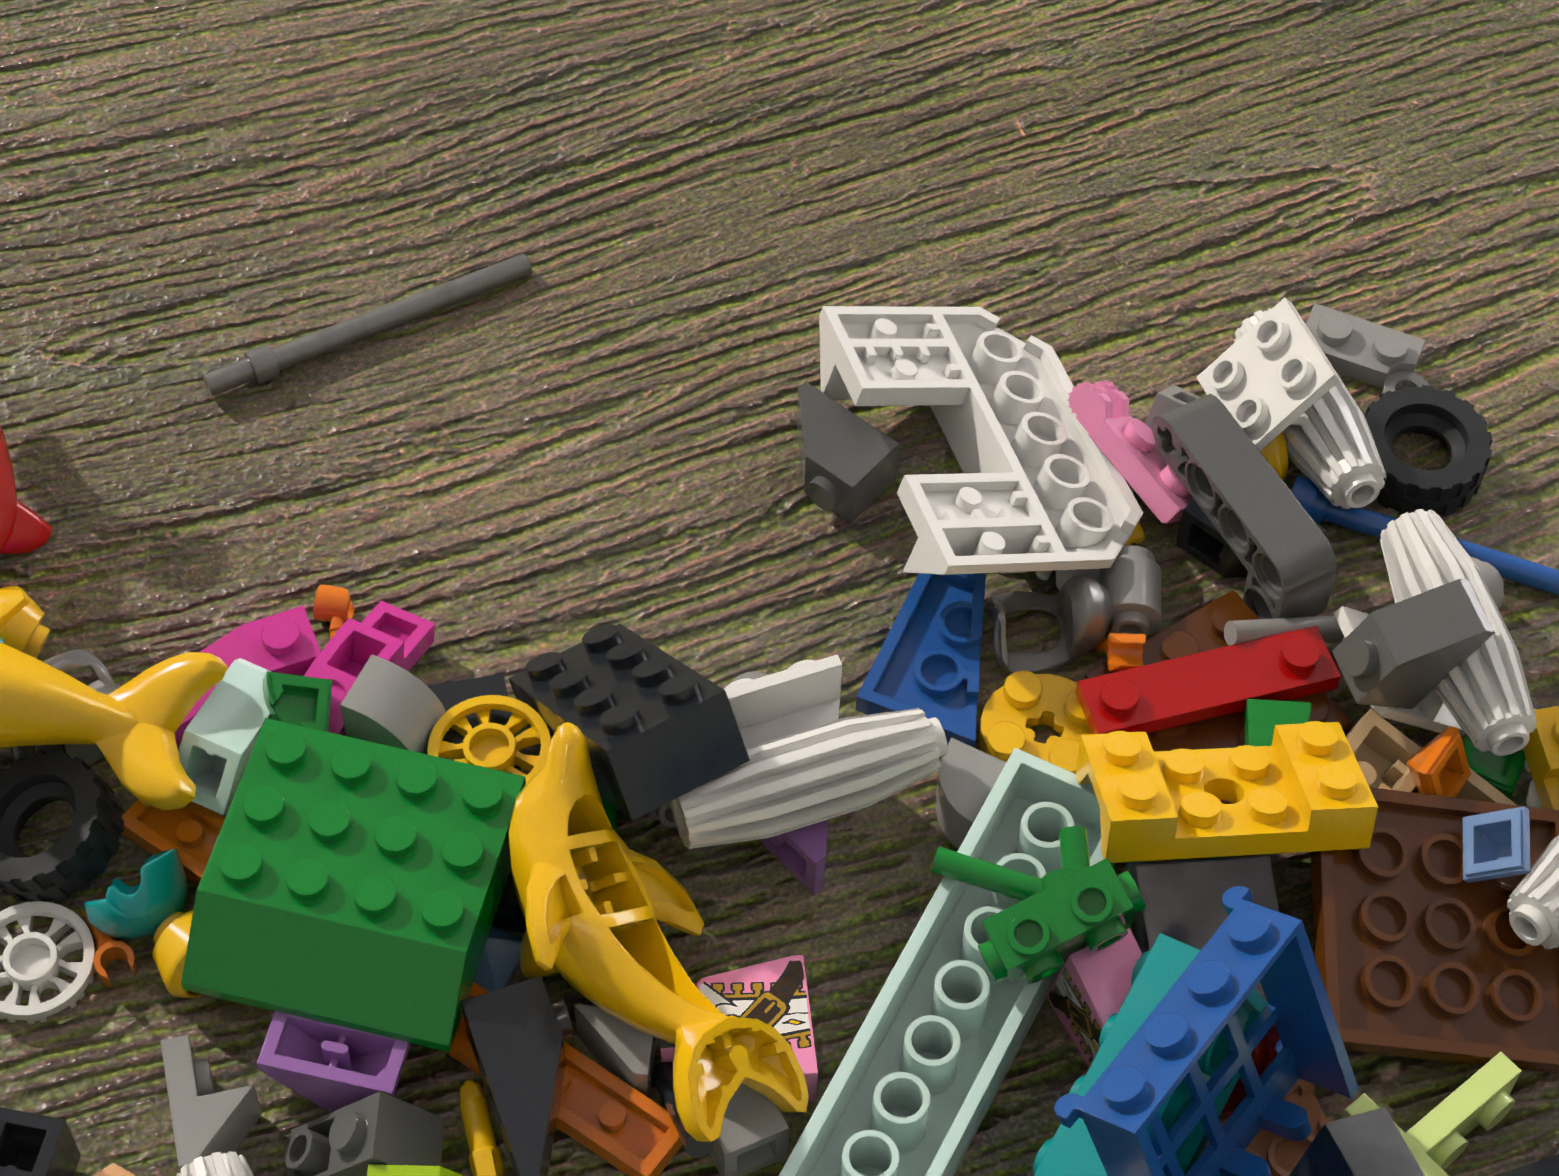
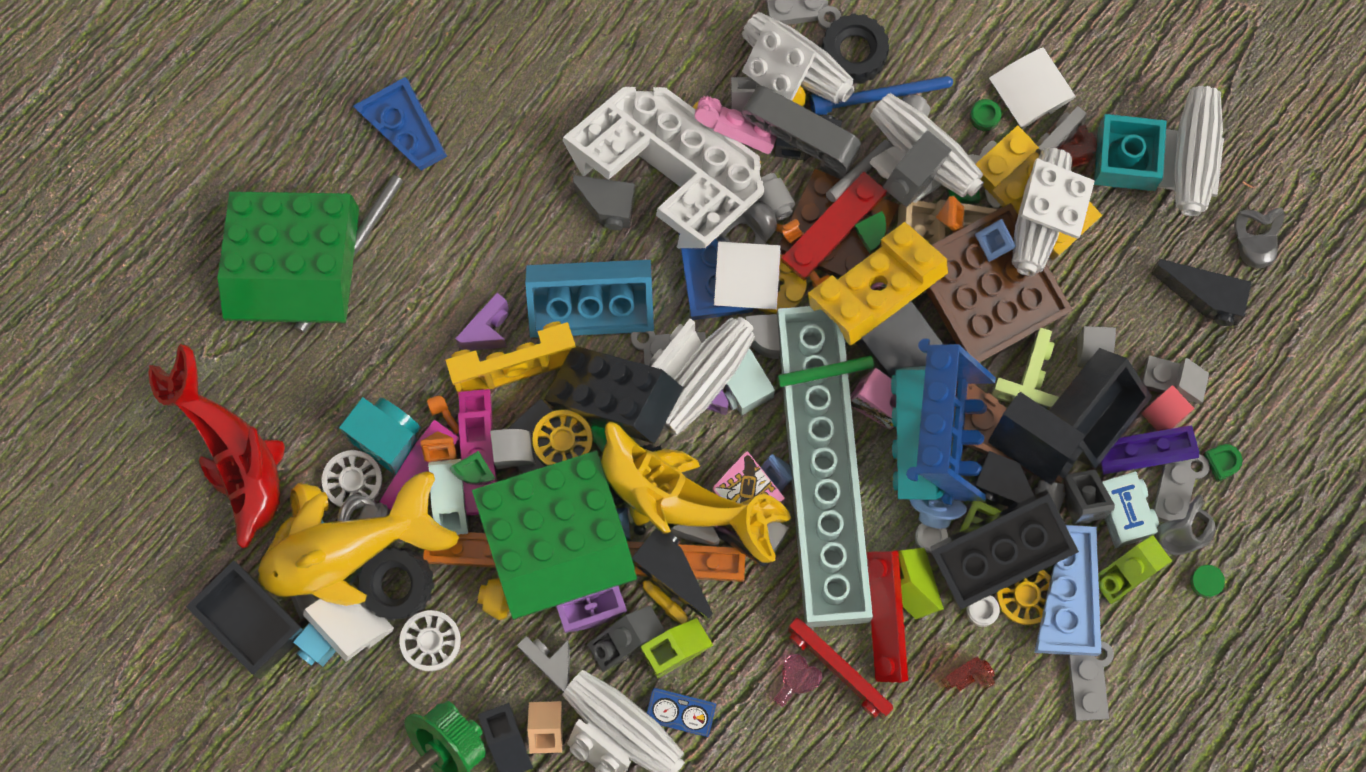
camera: 30 degrees left, 20 degrees up
(107, 951) = (454, 614): orange hand -> none
(111, 635) = (351, 478): none -> white wheel
(140, 909) = (460, 589): teal hair -> none
(202, 573) = (381, 432): none -> teal piece
(267, 268) = (287, 257): none -> green slope
(267, 638) = (438, 447): none -> orange slope
(487, 529) = (479, 331): none -> medium lavender slope
(496, 598) = (502, 369): none -> yellow piece
(593, 192) = (404, 123): none -> blue wing
(702, 579) = (591, 297): none -> dark azure slope
(834, 1029) = (777, 471): none -> medium blue slope
(881, 855) = (748, 386): none -> light aqua brick
(997, 677) = (747, 275): none -> white slope
(1074, 910) = (853, 376): green brick -> none

